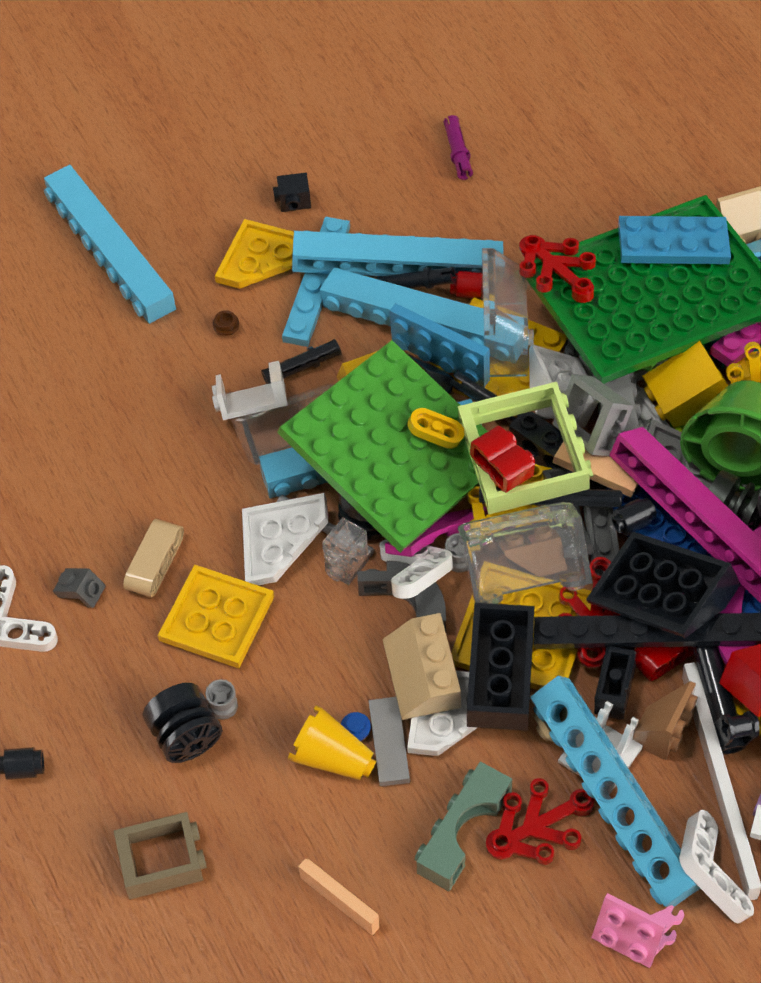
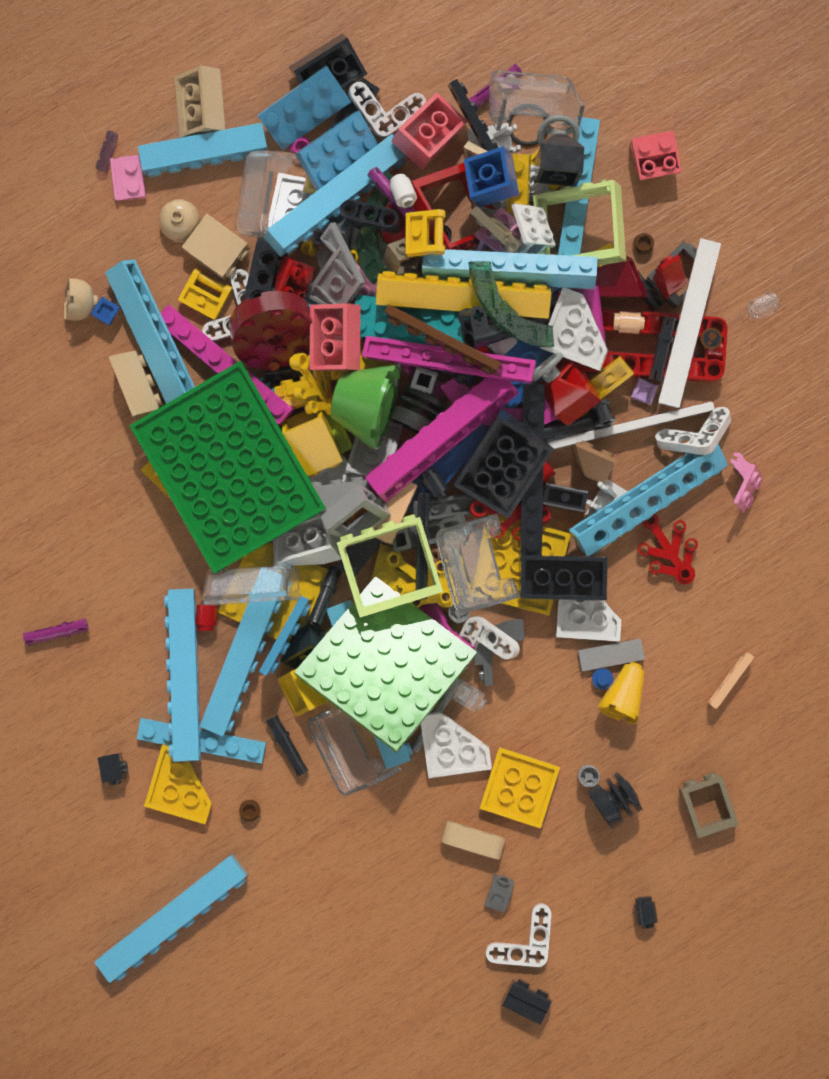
camera: 95 degrees left, 30 degrees up
(252, 399) = (329, 781): white panel -> none
(422, 667) = (563, 634): tan slope -> none
(427, 278) = (206, 660): black pin -> none
(435, 427) = (376, 634): yellow plate -> none
(482, 794) = (650, 587): sand green arch -> none
(502, 458) = (413, 581): red brick -> none
(536, 247) = (213, 546): red plant -> none
(674, 240) = (183, 452): dark azure plate -> none

